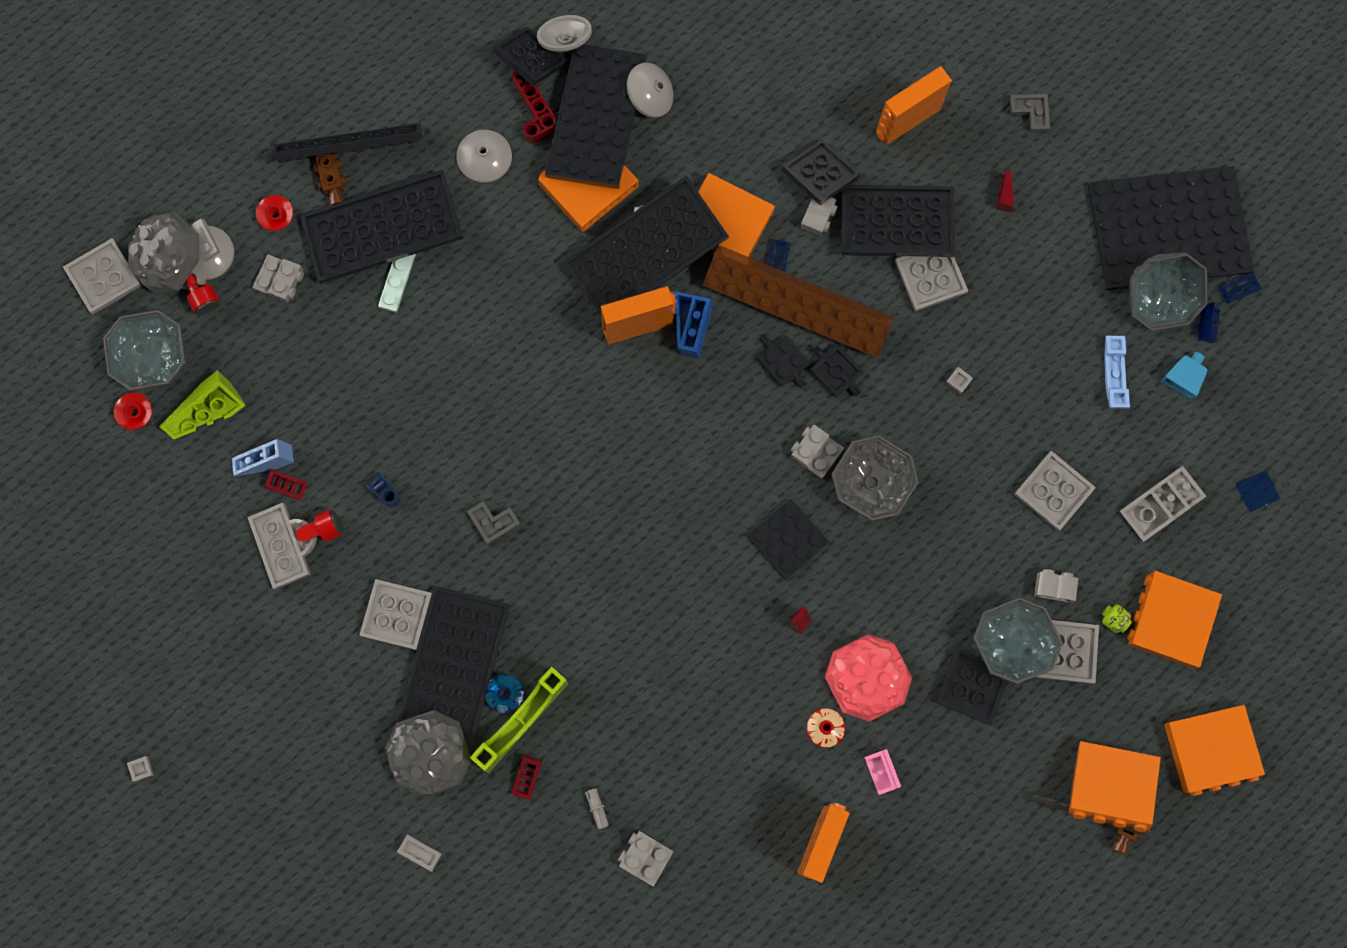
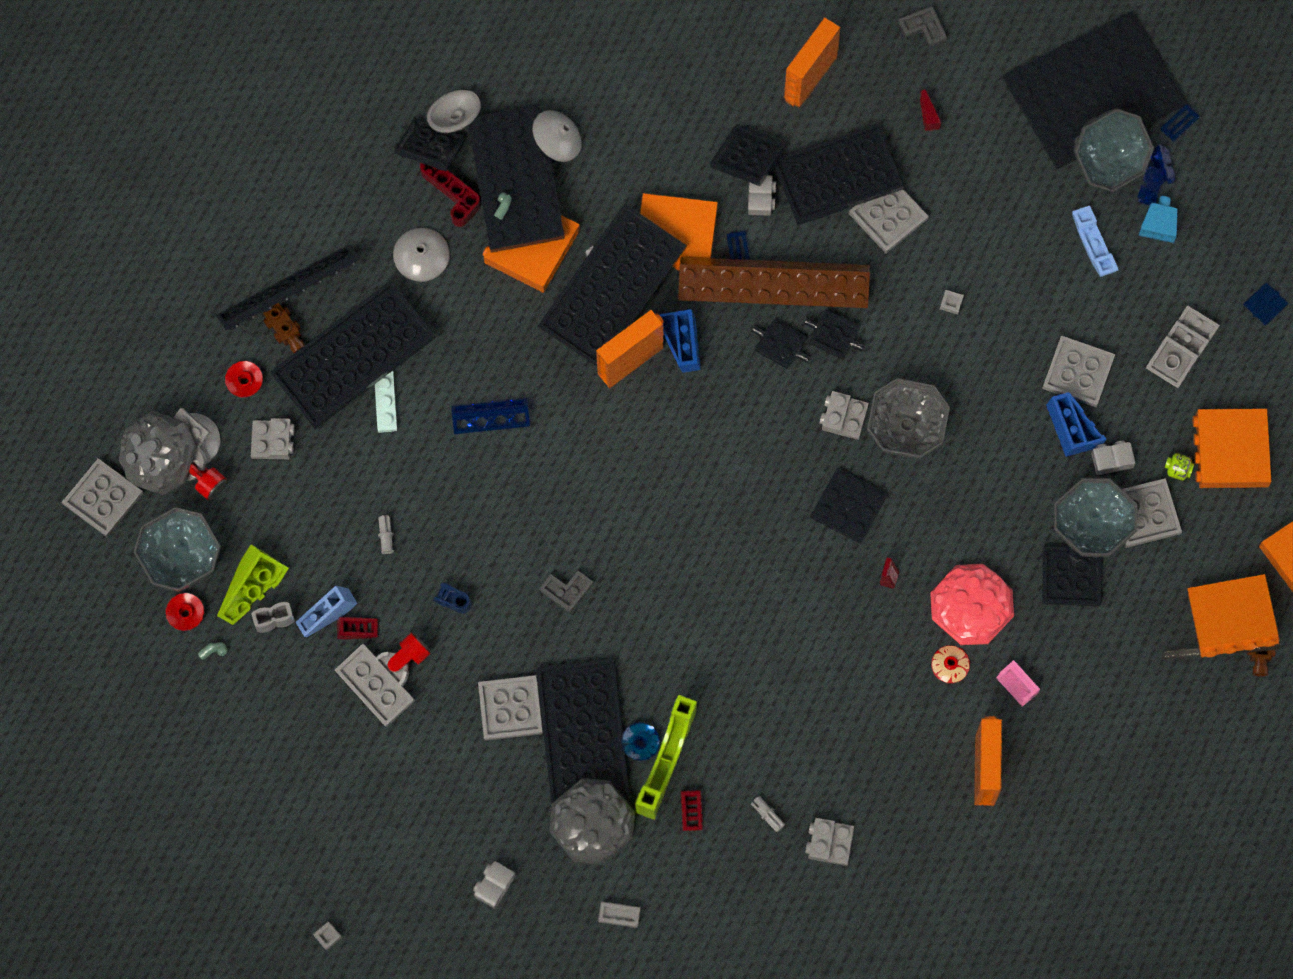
camera: 15 degrees left, 5 degrees down
(145, 454) = (218, 647): none -> sand green arm
(213, 446) = (277, 616): none -> light grey brick
(314, 779) = (494, 884): none -> light grey brick
(346, 406) = (385, 534): none -> light grey axle
(489, 324) = (487, 410): none -> clear blue fence
(576, 133) = (504, 206): none -> sand green arm
(1029, 542) = (1072, 425): none -> blue wedge
(1196, 332) = (1149, 193): none -> clear blue hinge

